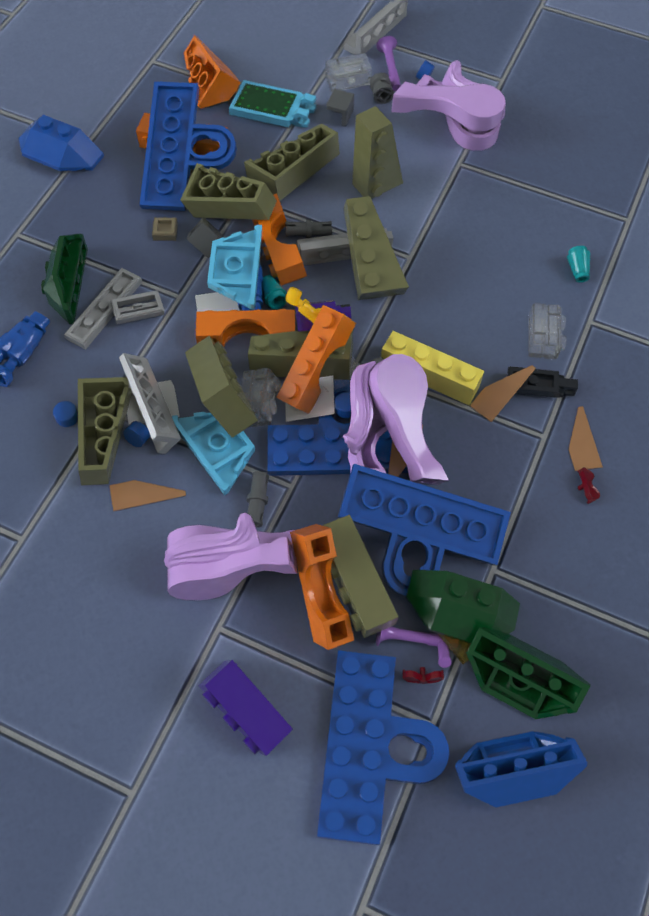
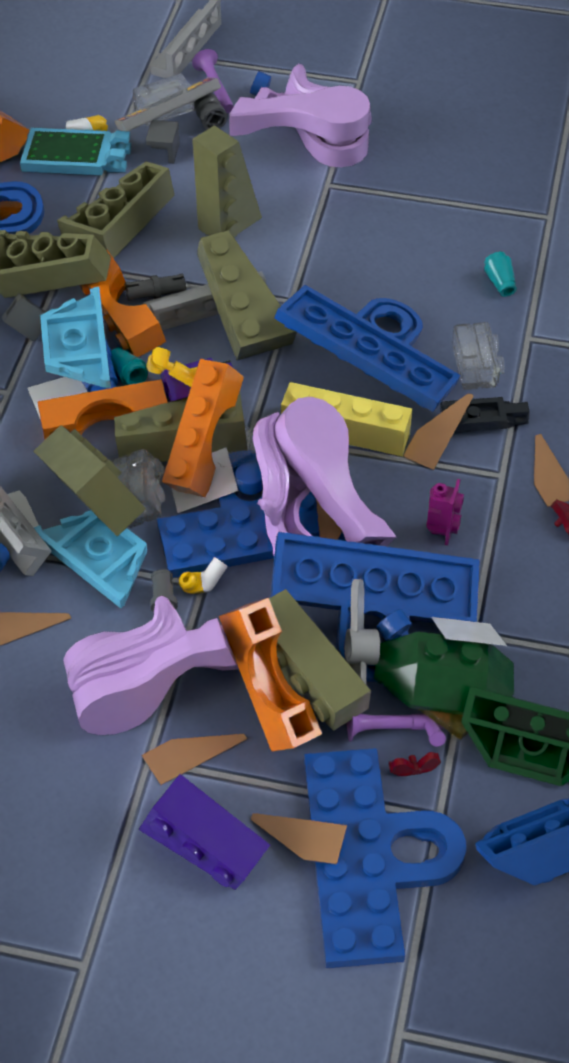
camera: 10 degrees left, 10 degrees down
(248, 628) = (186, 753): none -> medium nougat sticker
(287, 83) = (95, 123): none -> arm
(292, 485) = (202, 581): none -> arm
(325, 726) = (306, 838): none -> medium nougat sticker
(349, 77) = (167, 104): none -> light grey tile
(400, 569) = (361, 644): none -> light grey piece
(430, 557) = (394, 625): none -> blue piece
(461, 311) = (370, 348): none -> blue plate
(488, 575) = (468, 631): none -> white sticker
(492, 463) = (442, 511): none -> magenta hinge

